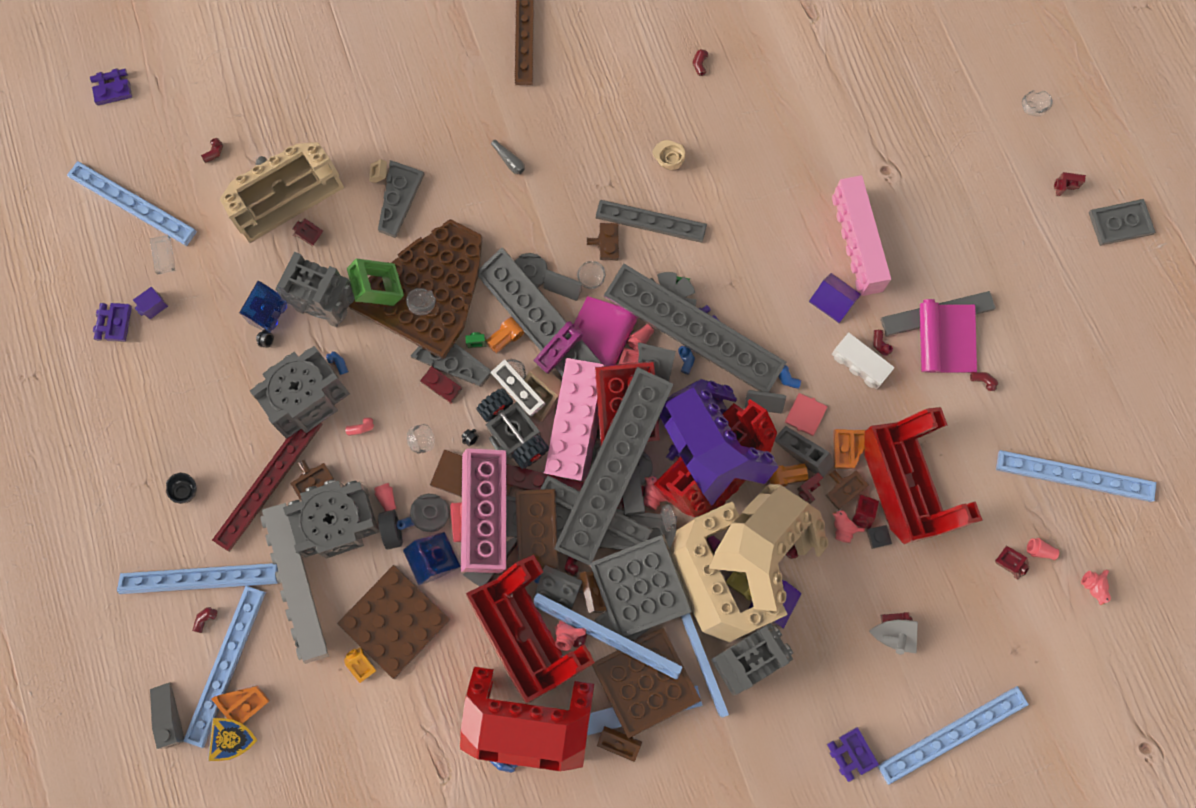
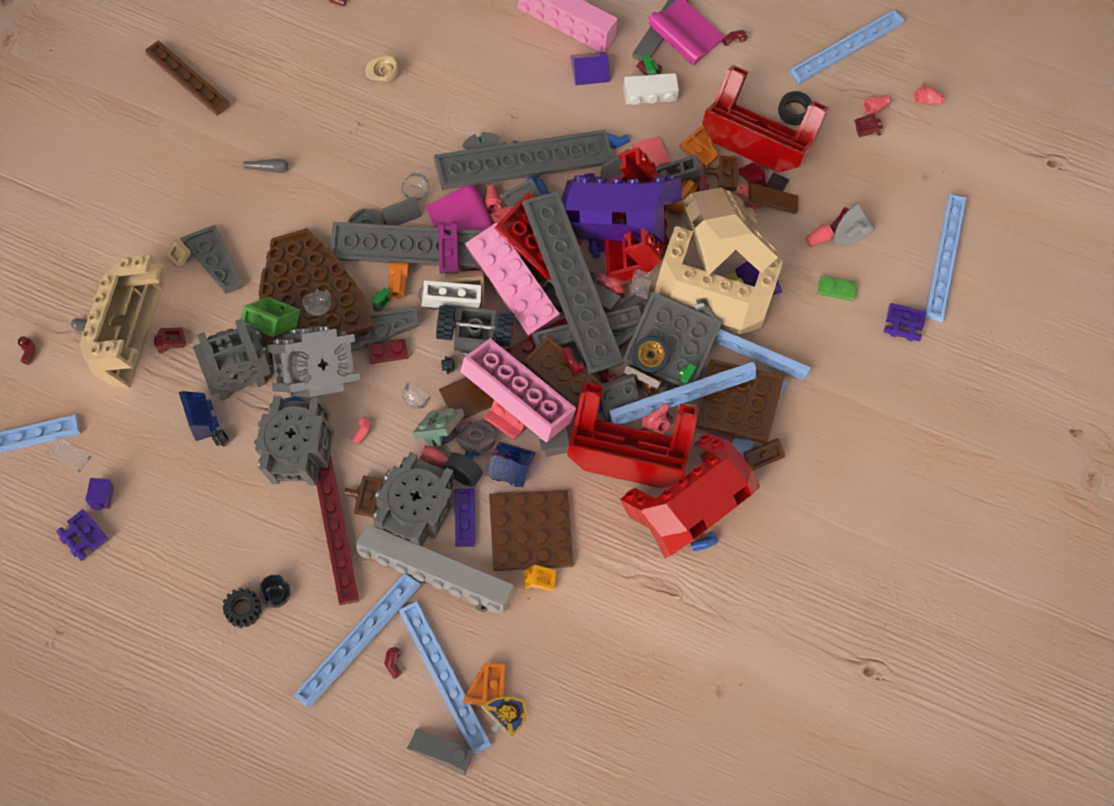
camera: 55 degrees left, 10 degrees down
(141, 473) = (233, 599): none -> black tyre
(360, 564) = (464, 517): none -> dark purple tile
(364, 346) = (313, 361): none -> piece
(408, 480) = (439, 426): none -> sand green piece
(548, 525) = (575, 366): none -> dark red arm
(600, 581) = (658, 347): none -> wheel
(607, 241) = (399, 160): reddish brown plate -> none
(622, 623) = (686, 373): none -> green plate
(651, 221) = (414, 123): dark grey tile -> none
(688, 585) = (702, 304): none -> dark grey hand
(753, 659) = (789, 314): dark grey piece -> none
(830, 670) = (837, 288): none -> bright green plate
(858, 547) = (773, 198): none -> reddish brown tile
(865, 614) = (820, 235): none -> coral cone
(880, 342) = (651, 65): none -> green plate
(976, 477) = (796, 97): none -> black tyre

